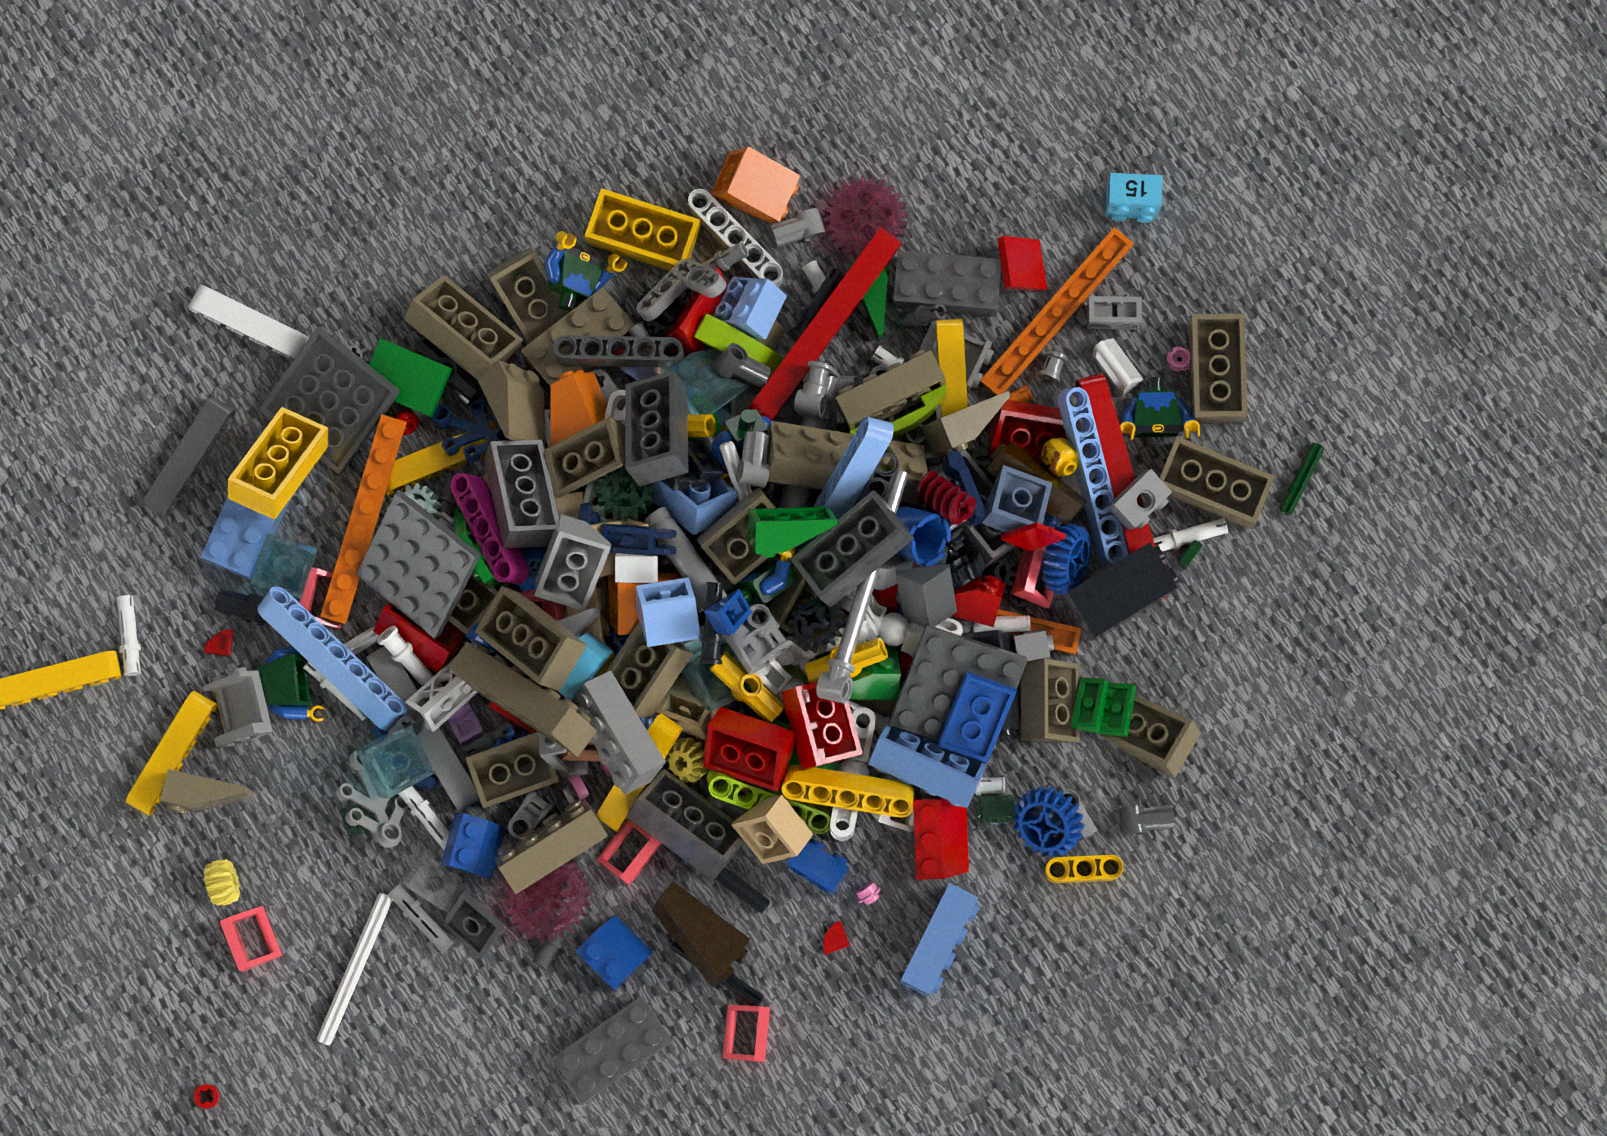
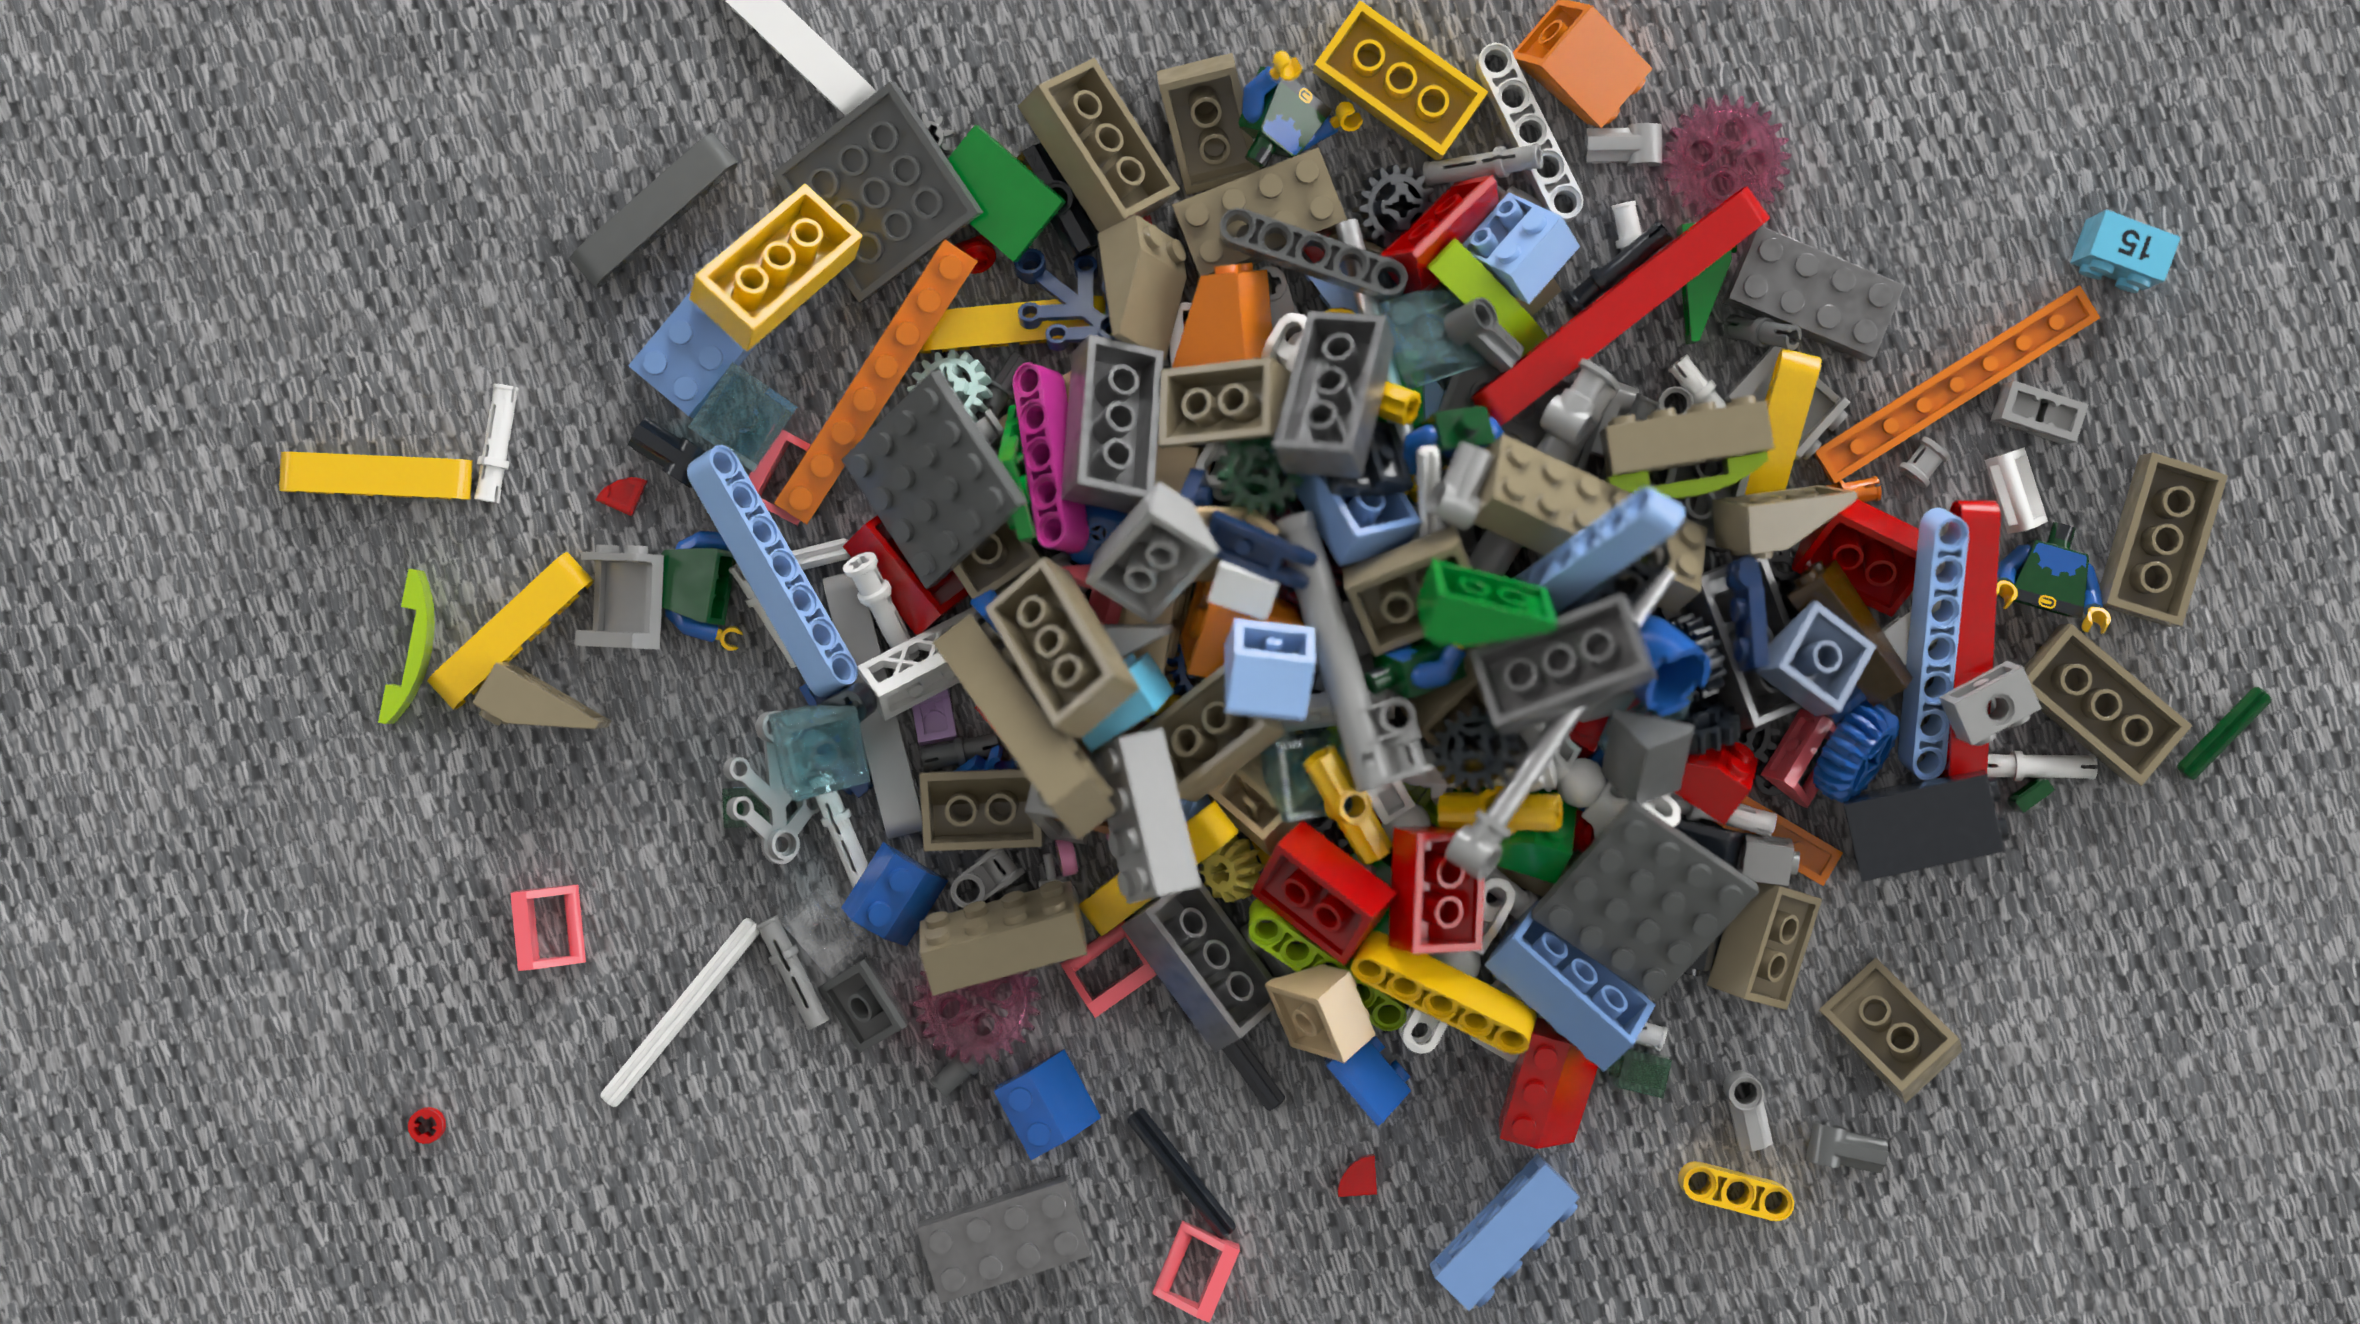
camera: 10 degrees right, 10 degrees up
(110, 817) = (398, 697): none -> lime slope
(221, 882) = (529, 838): light yellow gear -> none
(683, 275) = (1380, 203): light grey beam -> none
(701, 933) = (1176, 1118): dark brown slope -> none
(710, 639) = (1321, 725): black pin -> none
(728, 613) = (1356, 705): blue slope -> none
(868, 893) = (1424, 1129): bright pink plate -> none
(945, 498) = (1716, 628): dark red piece -> none
(976, 717) = (1659, 947): blue tile -> none
(1022, 263) = (1930, 299): red tile -> none
(1033, 536) = (1824, 716): red piece -> none
(1055, 817) = (1709, 1114): blue gear -> none
(1059, 457) = (1895, 604): yellow head -> none
(1103, 707) = (1837, 972): green slope -> none
(1177, 352) = (2115, 498): bright pink plate -> none

